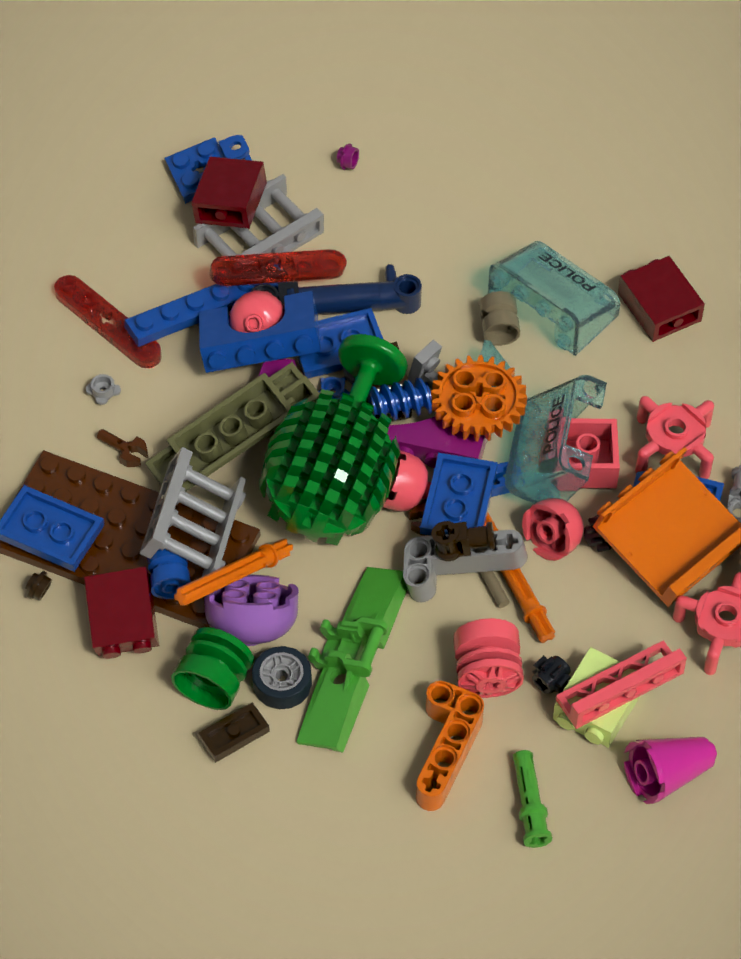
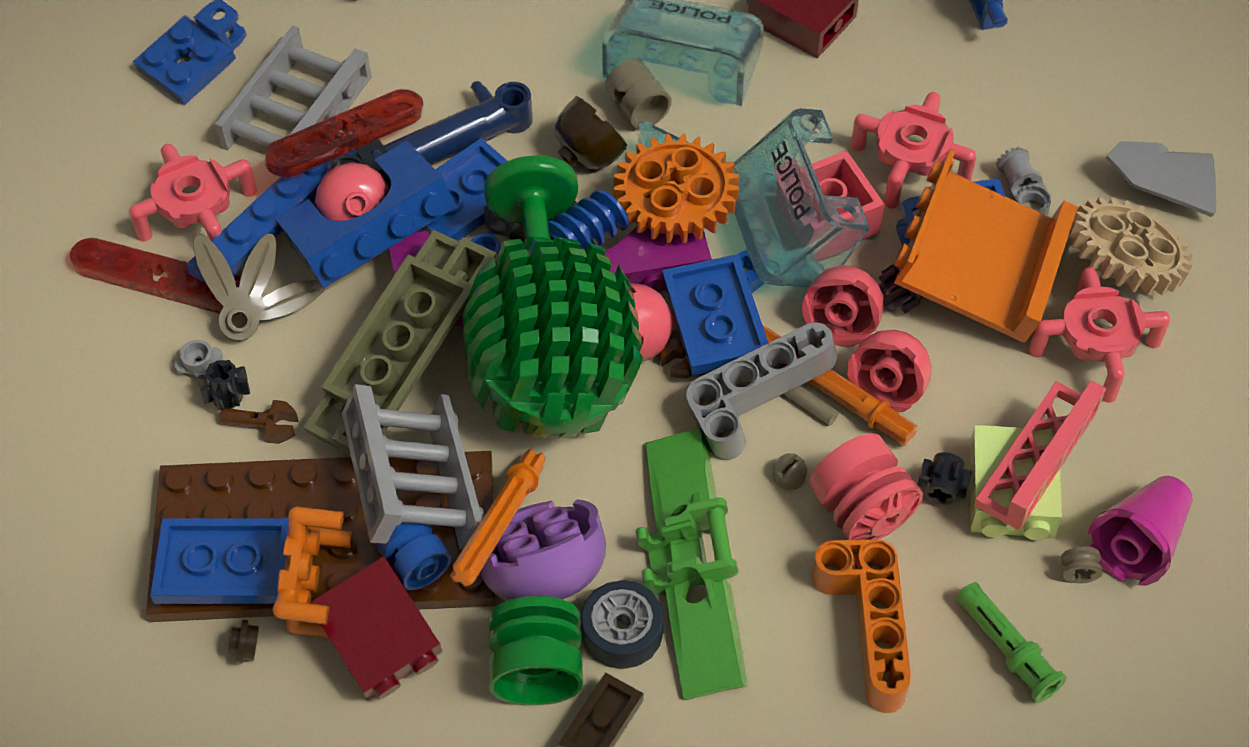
camera: 25 degrees left, 0 degrees up
(90, 555) = (299, 574): none -> orange plate
(109, 412) = (224, 384): none -> black gear
(157, 281) = (193, 207): none -> coral plate
(165, 346) = (254, 279): none -> dark tan plant
(229, 192) = (241, 66): dark red brick -> none
(425, 364) = (591, 171): light grey plate -> none
(446, 331) = (586, 136): none -> dark brown cylinder
(455, 622) = (796, 474): none -> dark tan hinge
(461, 539) = (760, 358): dark brown connector -> none
(559, 585) = (891, 368): none -> coral cylinder
(610, 771) = (1081, 564): none -> dark tan bush

